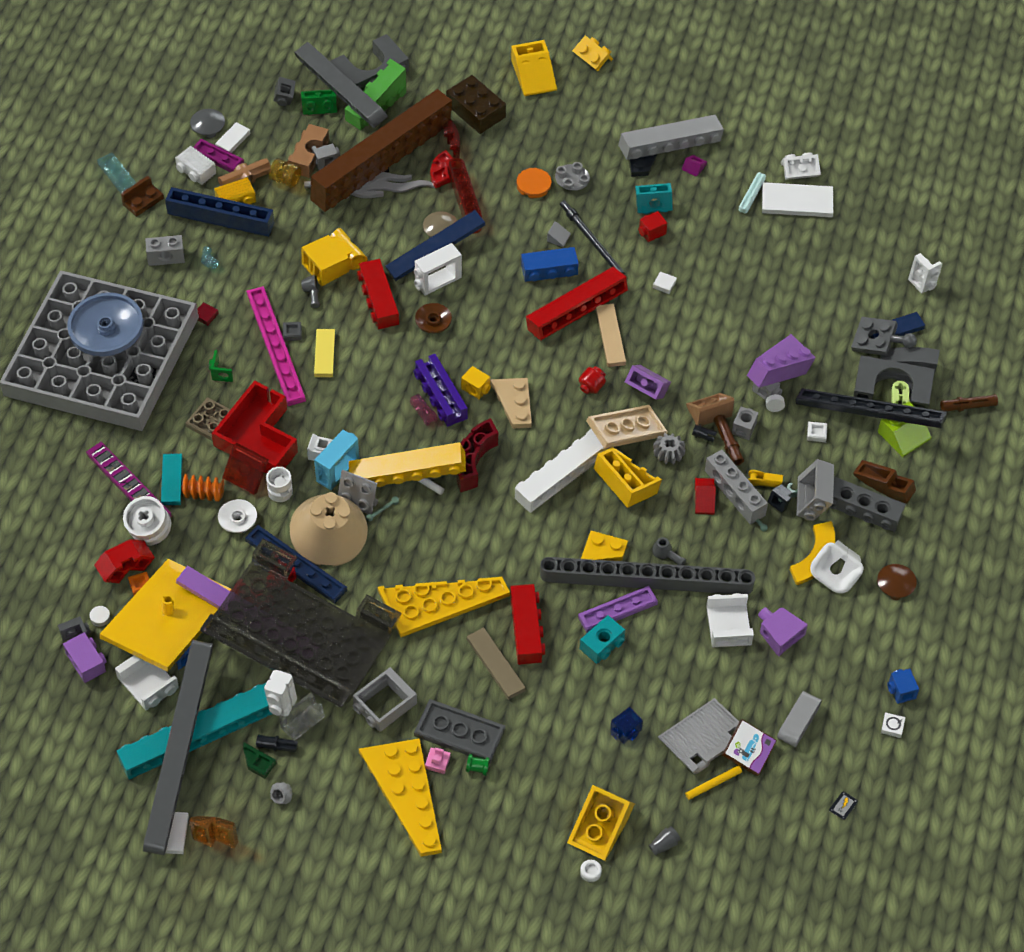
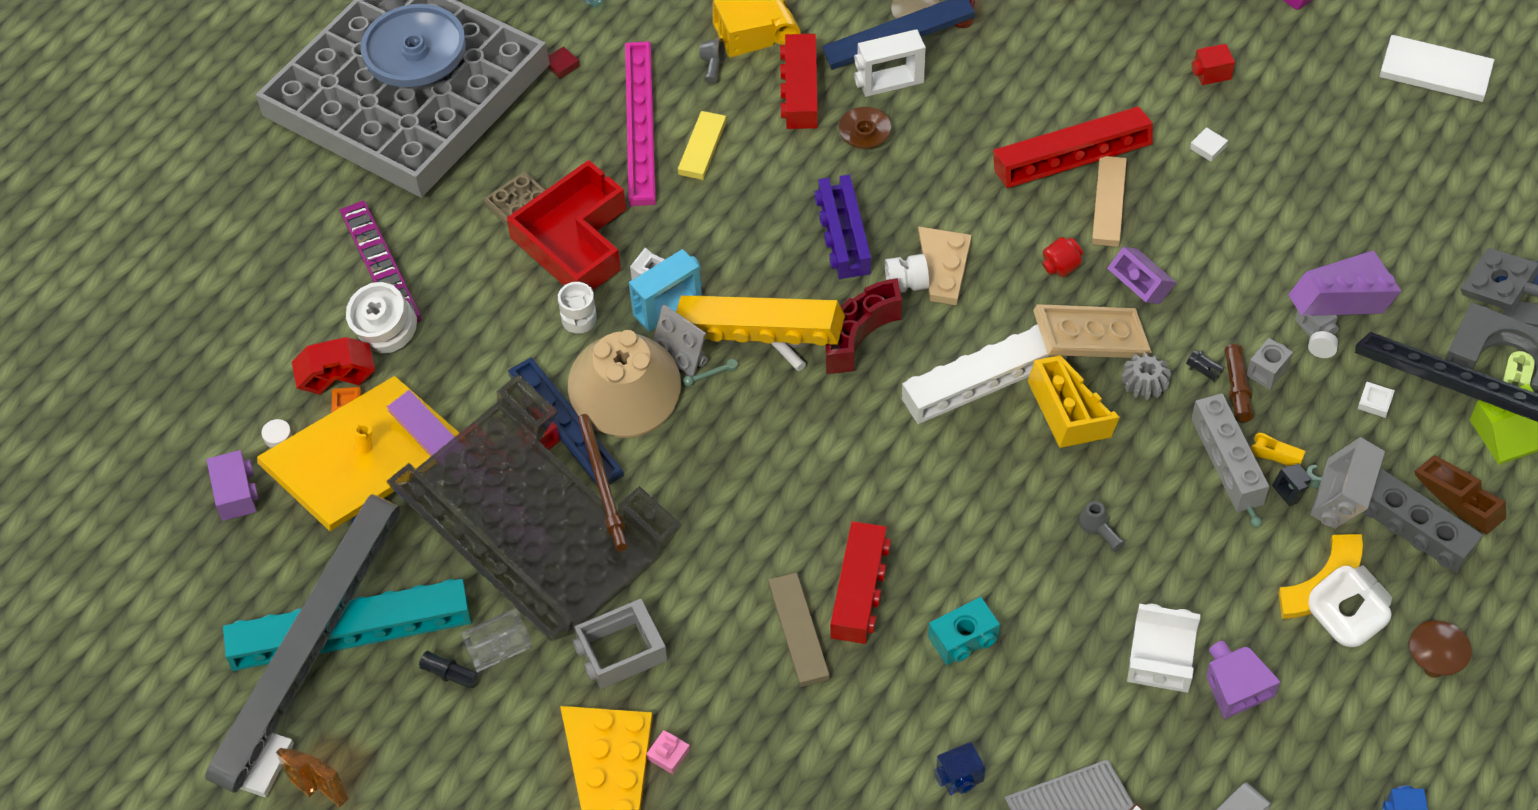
camera: 20 degrees right, 0 degrees up
(73, 628) = (233, 440): dark grey bracket -> none
(146, 681) = (301, 538): white panel -> none
(171, 479) = (438, 270): teal tile -> none
(202, 488) = (473, 291): orange piece -> none
(213, 366) = (546, 135): green bracket -> none
(237, 510) = (506, 330): white dish -> none
(245, 468) = (537, 276): clear red tile -> none
(258, 761) = (416, 689): dark green tile -> none
(280, 693) = (467, 599): white brick -> none
(281, 793) = (429, 744): light grey piece -> none
(292, 331) = (668, 108): dark grey tile -> none
(356, 621) = (614, 522): none -> reddish brown bar
(422, 409) = (811, 247): clear pink bar -> none
(440, 601) = (746, 520): yellow wing -> none
(459, 730) = (714, 716): dark grey tile -> none
(475, 382) = (895, 226): yellow brick -> none
(477, 764) = (722, 773): green bush -> none
(497, 411) = (910, 273): none -> white wheel
(549, 264) = (1051, 87): blue brick -> none
(558, 235) = (1075, 50): light grey slope -> none
(573, 215) = (1105, 30): black bar -> none
(604, 547) = (1007, 499): yellow wing -> none
(619, 608) = (1005, 590): medium lavender tile -> none
(646, 193) = (1215, 16): teal brick -> none
(656, 572) = (1070, 562): dark grey beam -> none
(705, 496) = (1179, 456): red slope -> none
(706, 409) = (1217, 332): medium nougat slope -> none
(752, 193) = (1372, 46): light aqua axle -> none
(801, 166) = (1454, 22): white bracket -> none

